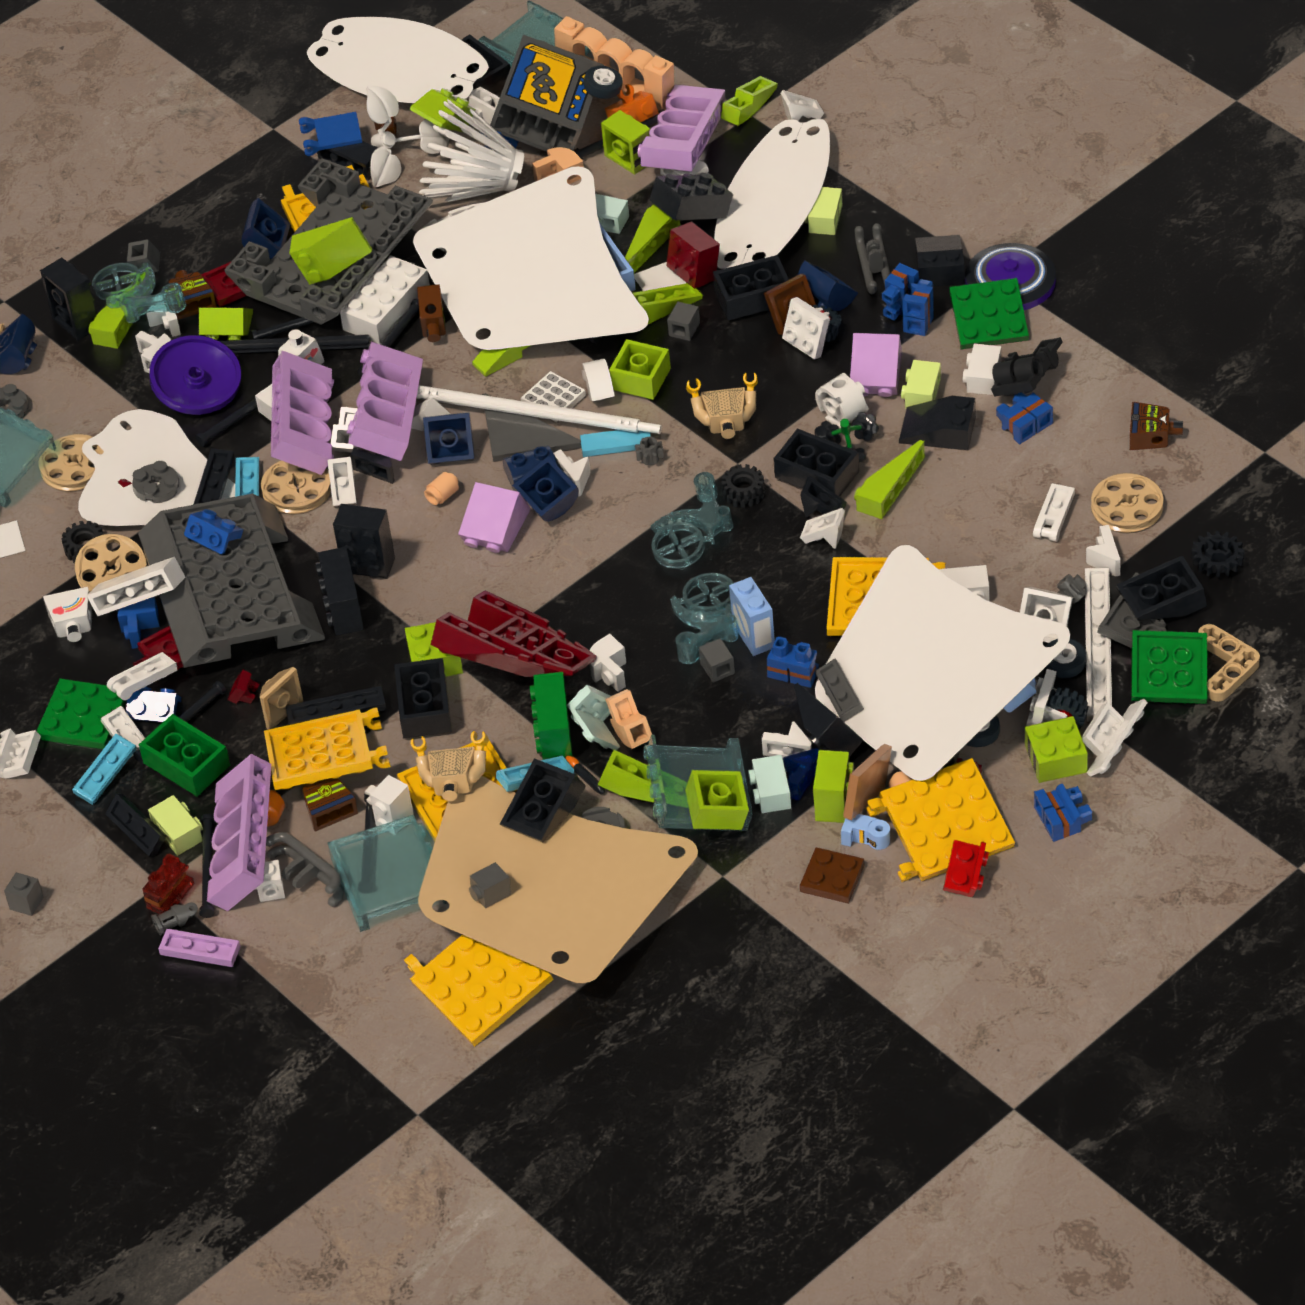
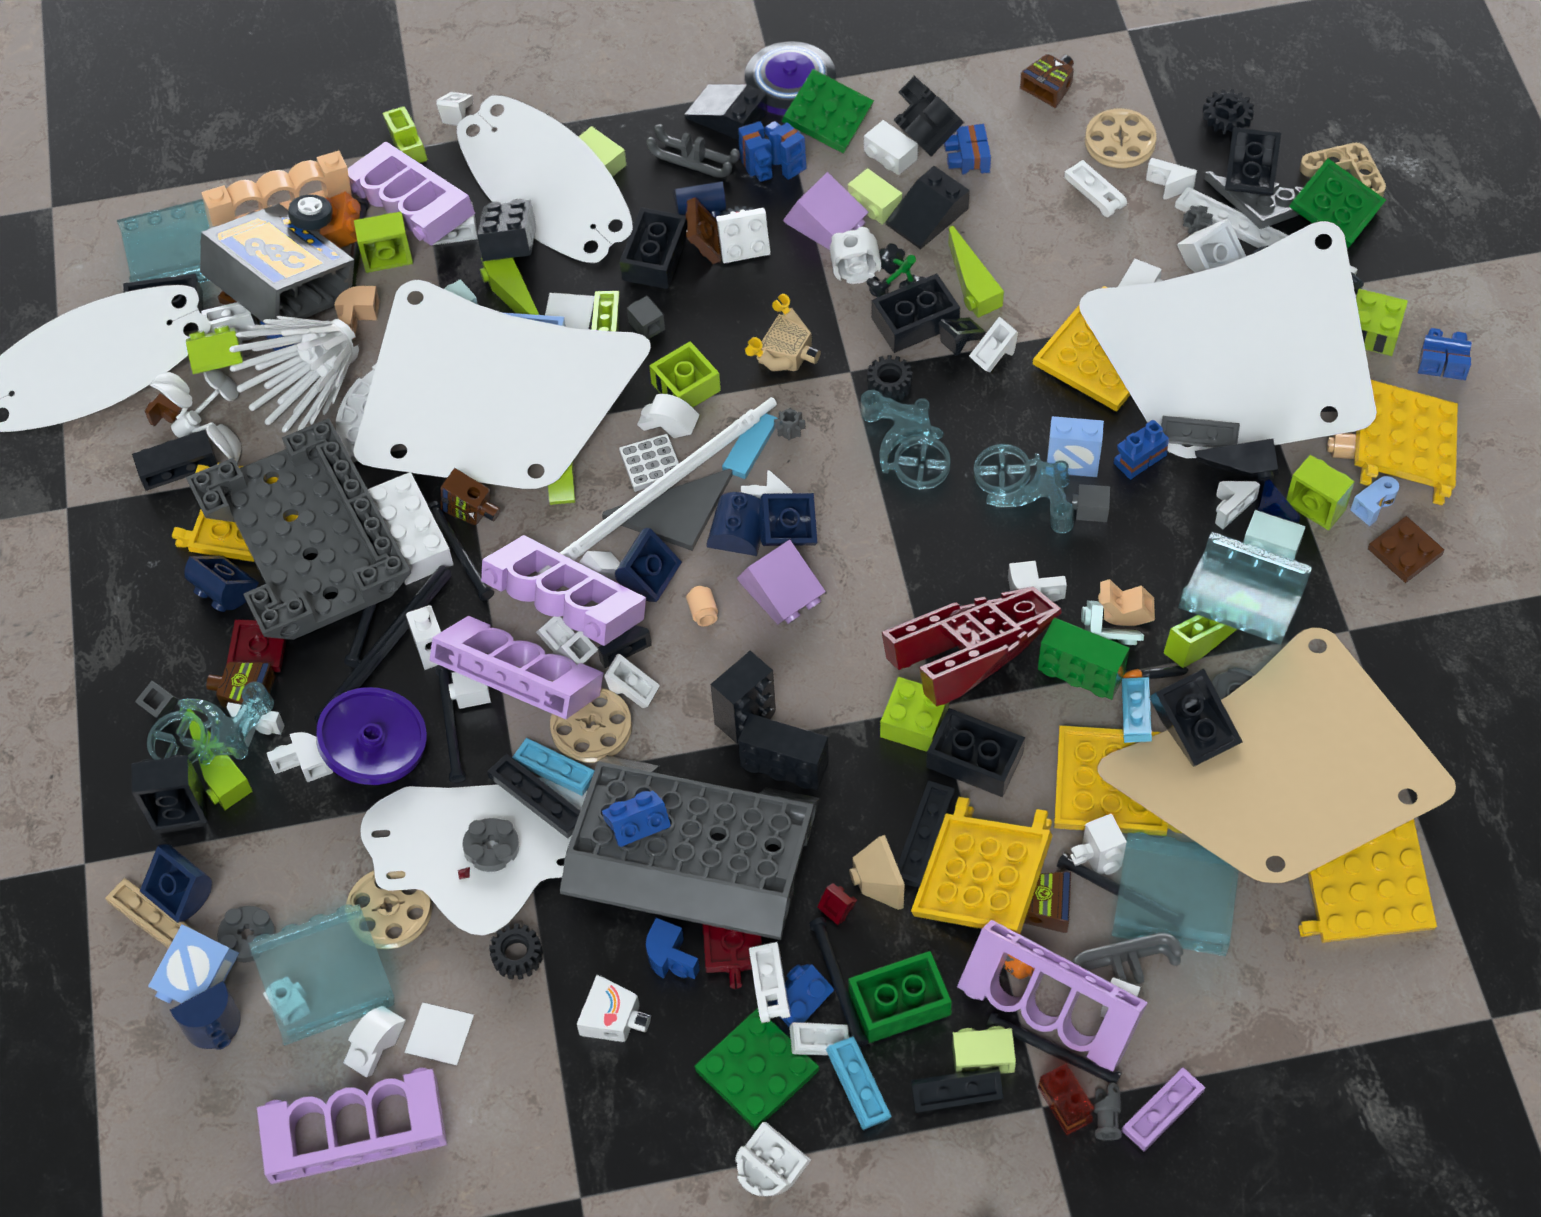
camera: 60 degrees left, 10 degrees up
(107, 558) = (583, 931): tan wedge -> none
(136, 586) = (650, 926): white brick -> none
(224, 321) = (312, 675): lime slope -> none
(328, 249) = (334, 530): lime slope -> none
(331, 132) = (141, 452): blue flag -> none
(452, 769) = (1100, 770): tan torso -> none
(489, 885) = (1286, 808): dark grey brick -> none
(692, 254) = (579, 266): dark red brick -> none
(716, 799) = (1289, 581): lime brick -> none
(867, 781) = (1345, 459): medium nougat tile -> none
(964, 868) = (1474, 447): red bracket -> none
(1108, 732) = (1382, 276): white bracket -> none

